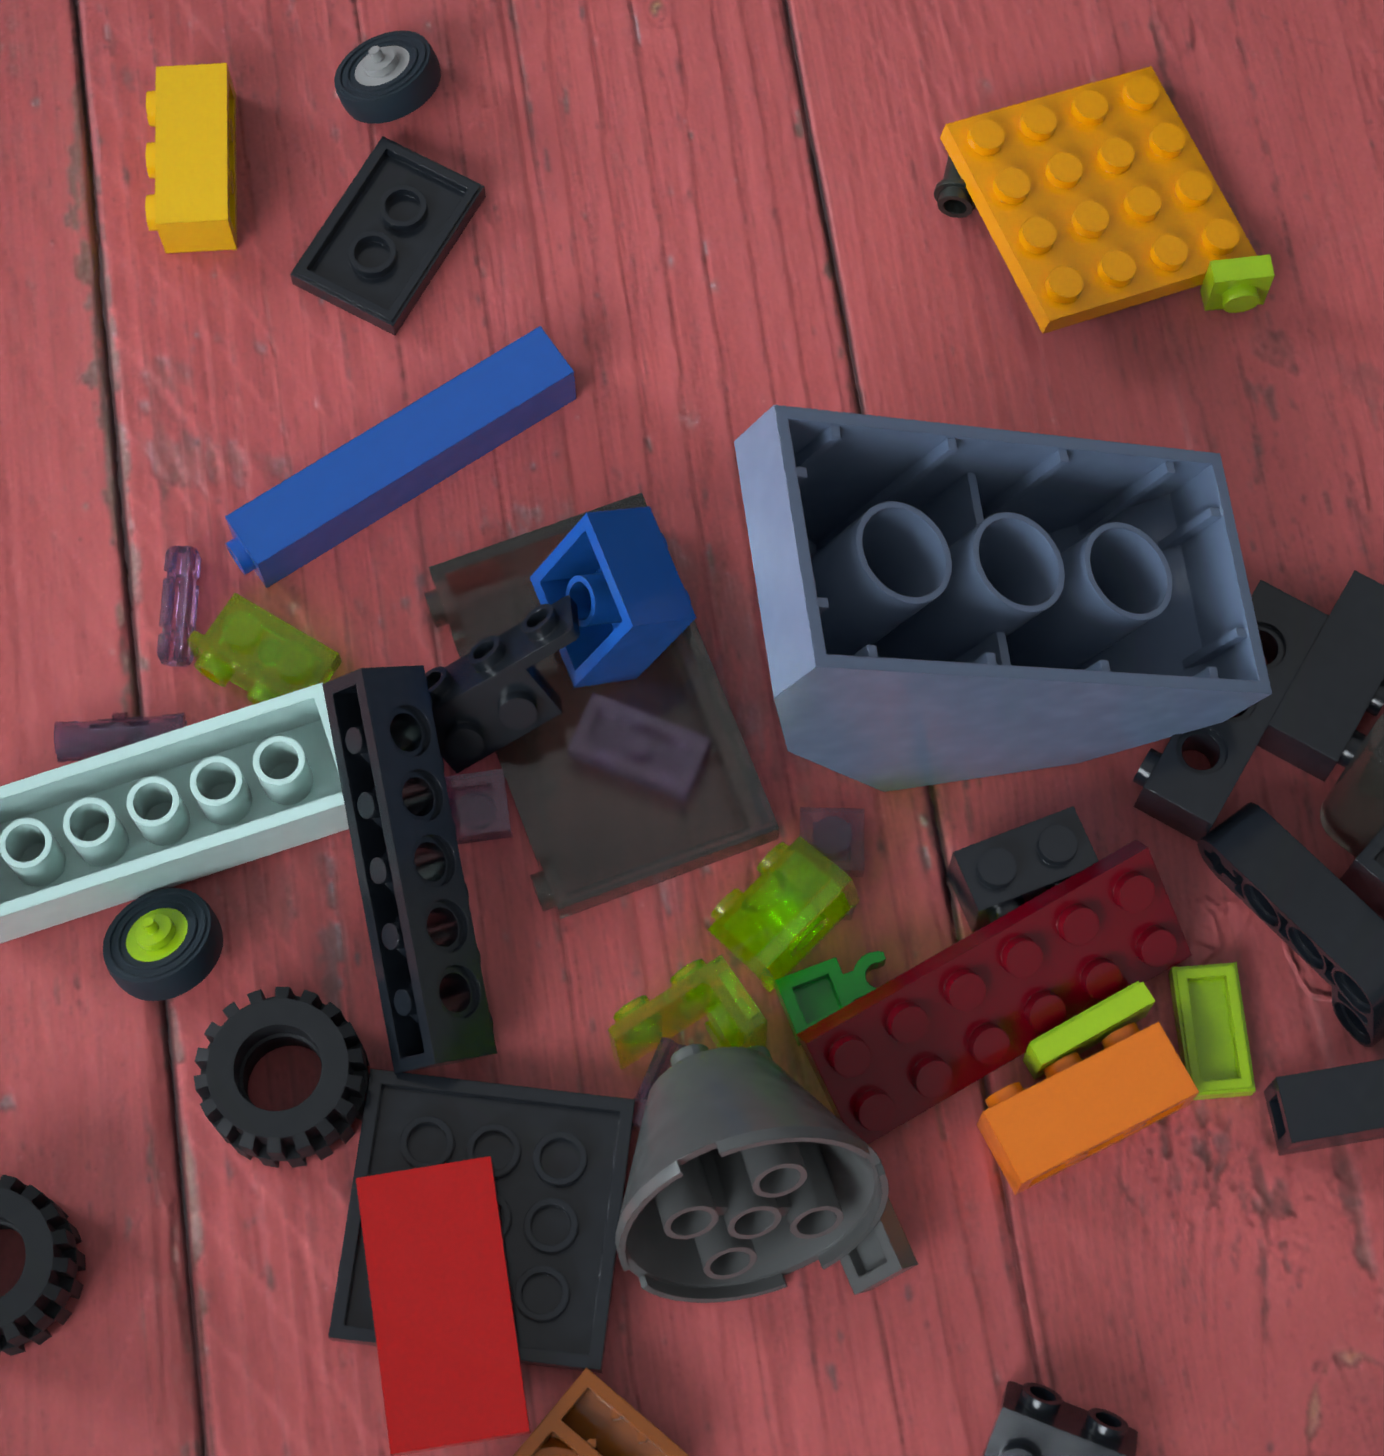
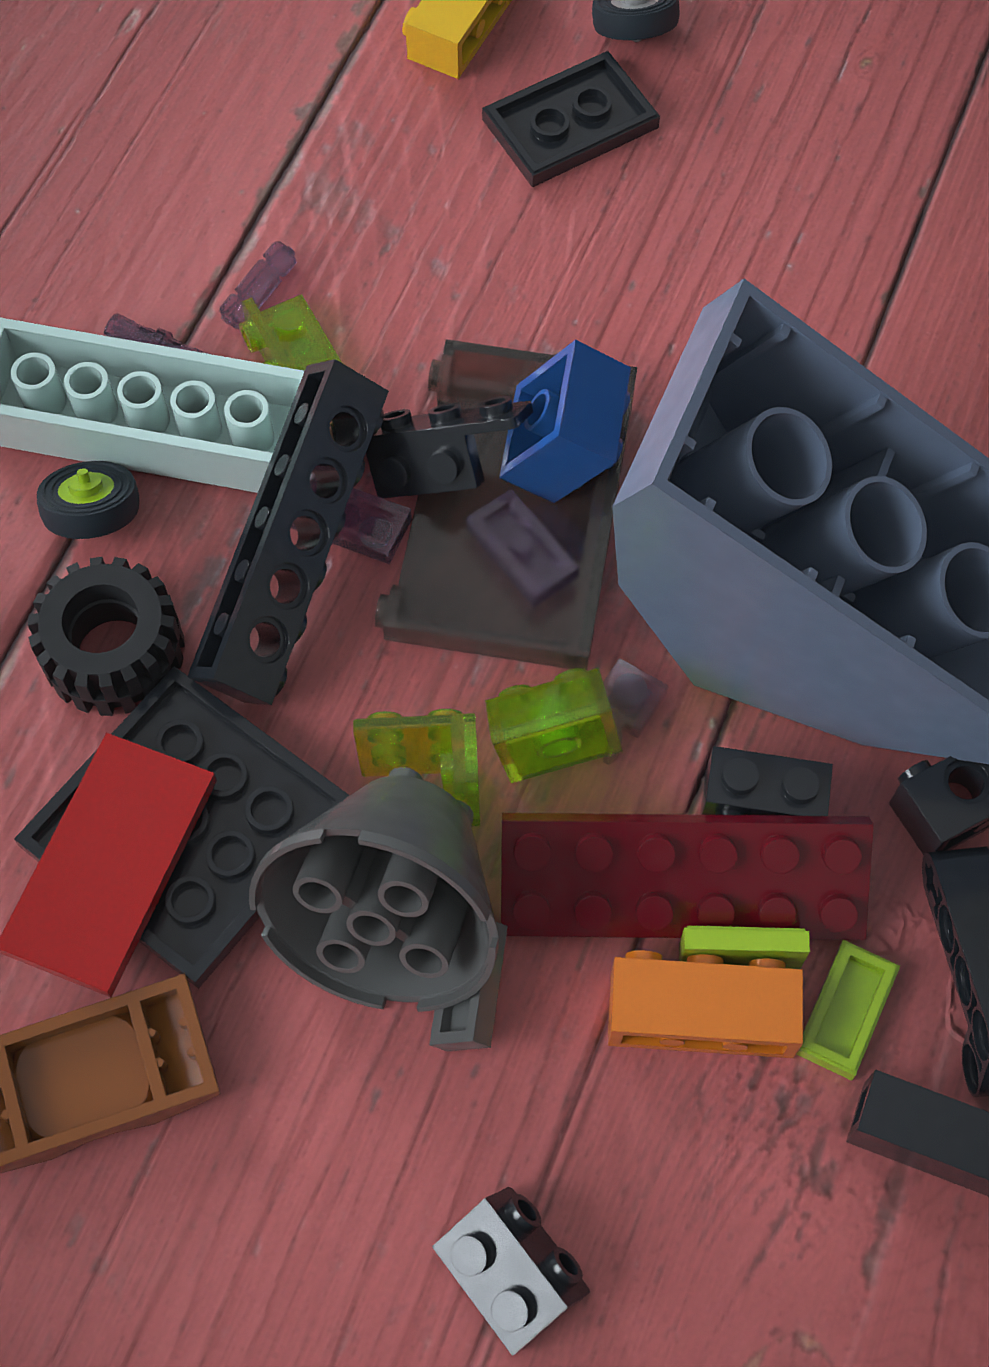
camera: 30 degrees right, 5 degrees down
(400, 458) = (479, 262): blue brick -> none
(824, 989) = (554, 795): green plate -> none

